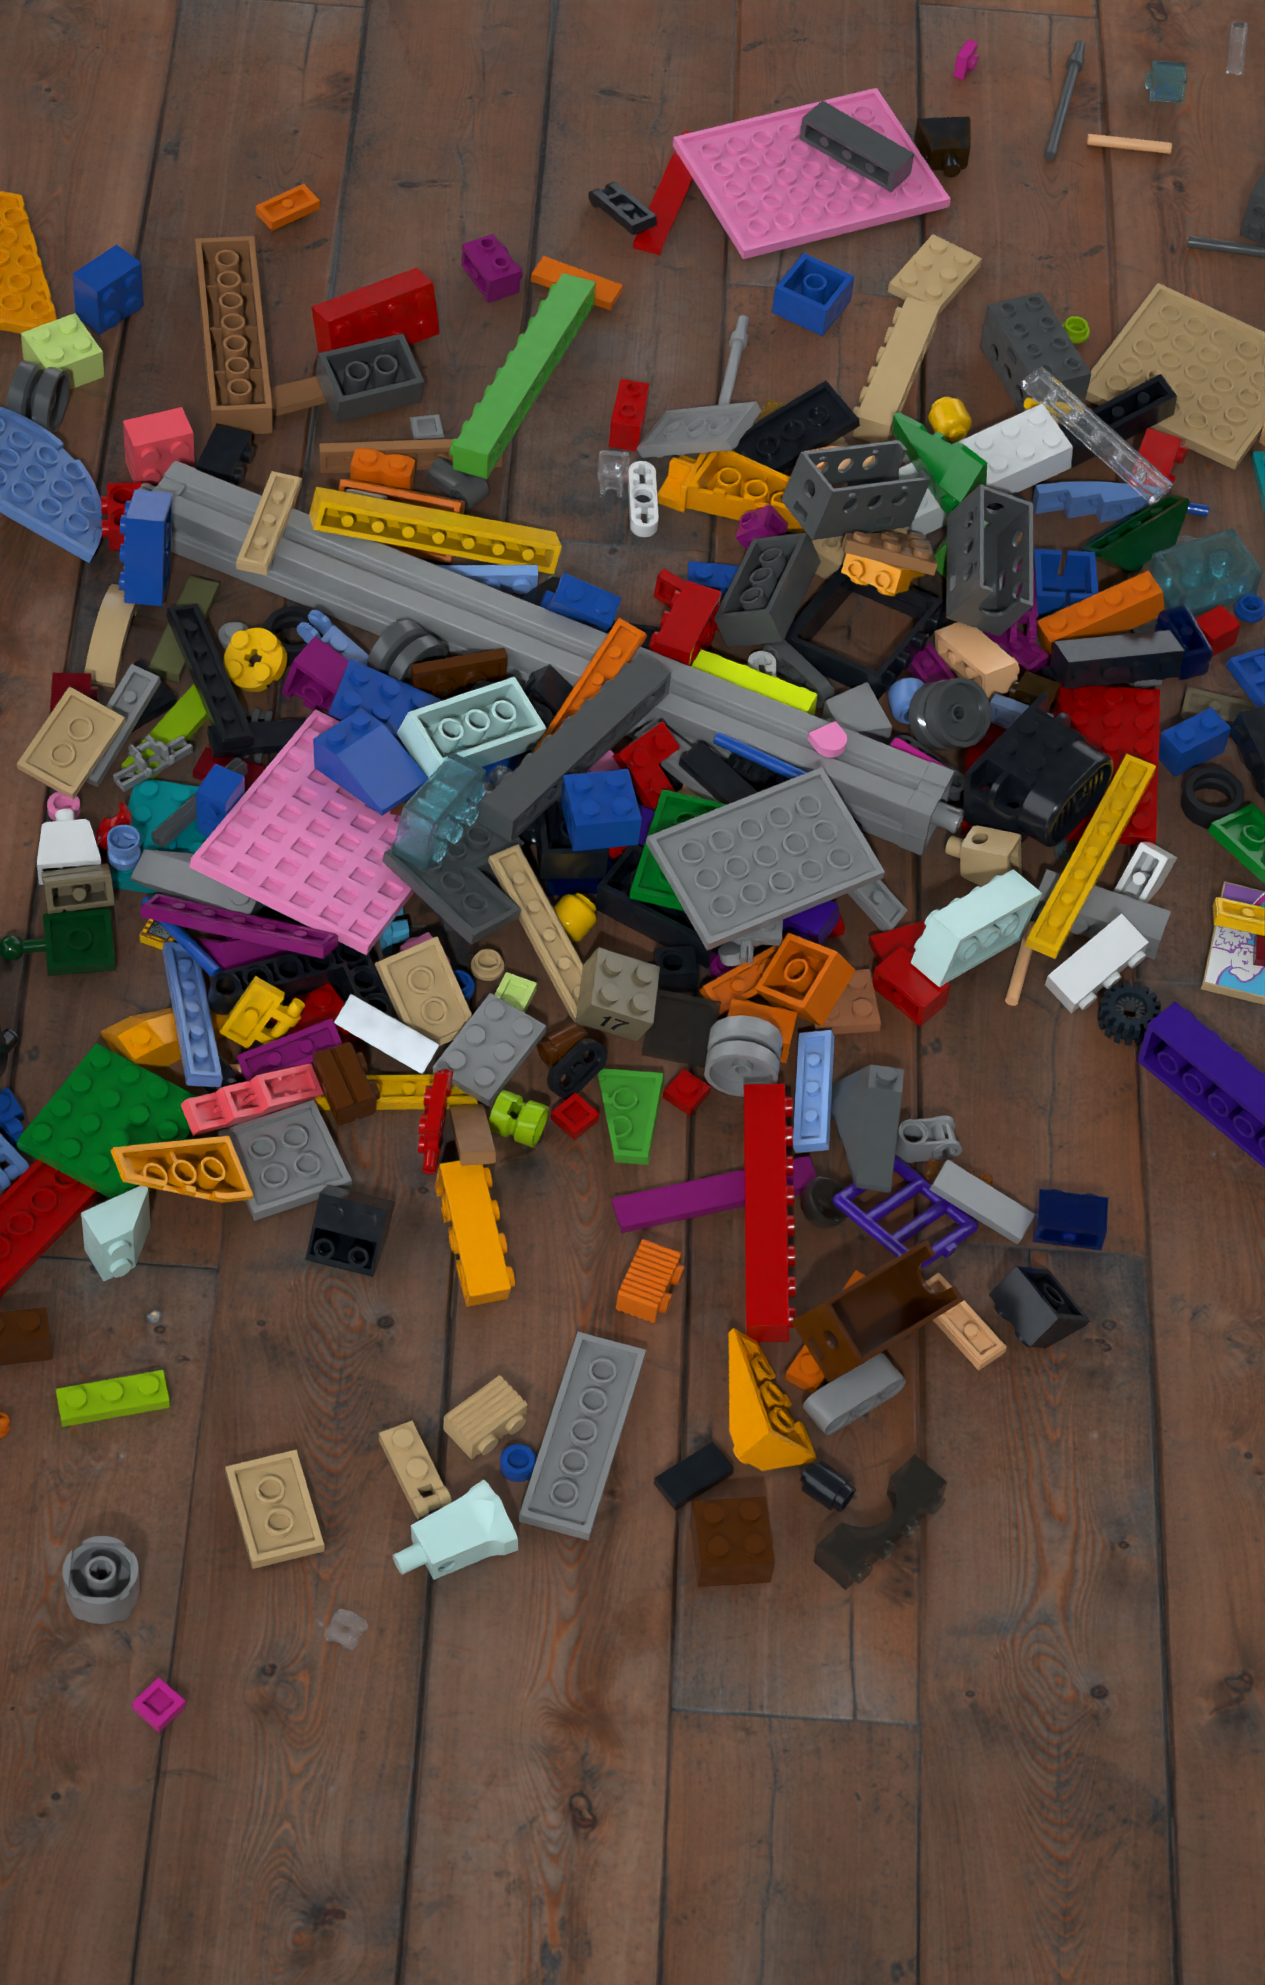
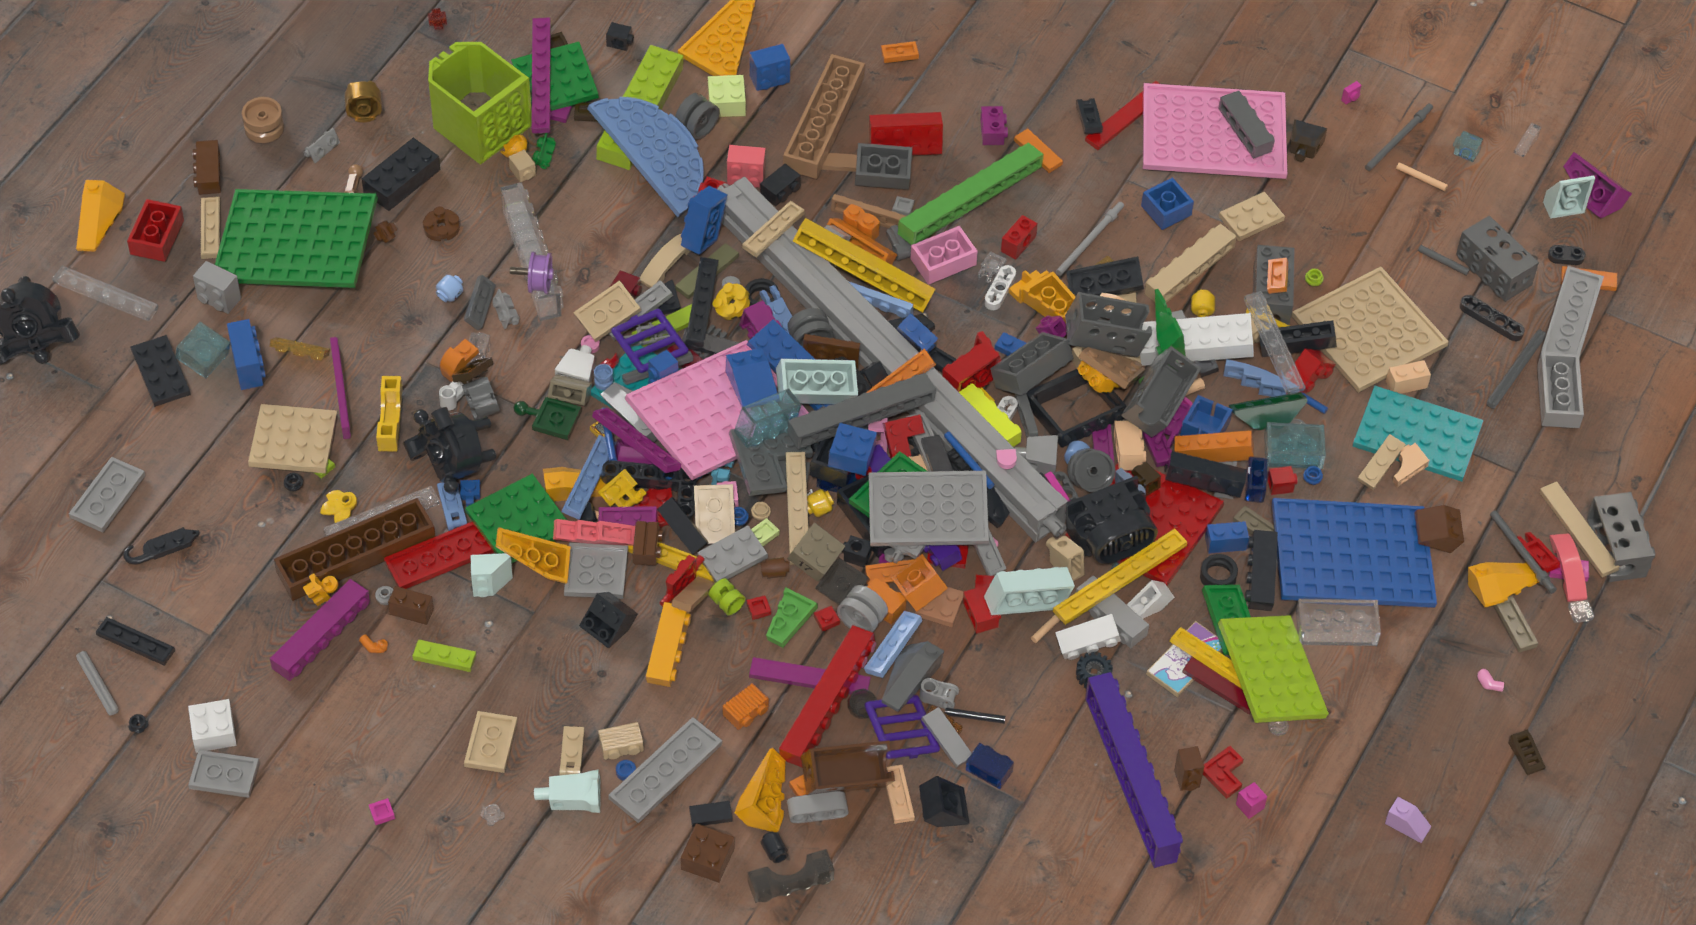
camera: 30 degrees right, 0 degrees up
(101, 1580) = (386, 740): light grey brick -> none
(176, 731) = (665, 325): none -> dark purple bar
(536, 478) = (943, 255): none -> bright pink brick
(576, 1069) = (773, 582): black plate -> none
(699, 430) = (1048, 259): light grey plate -> none
(999, 1151) = (975, 715): none -> black bar
(1049, 336) = (1277, 275): none -> orange plate

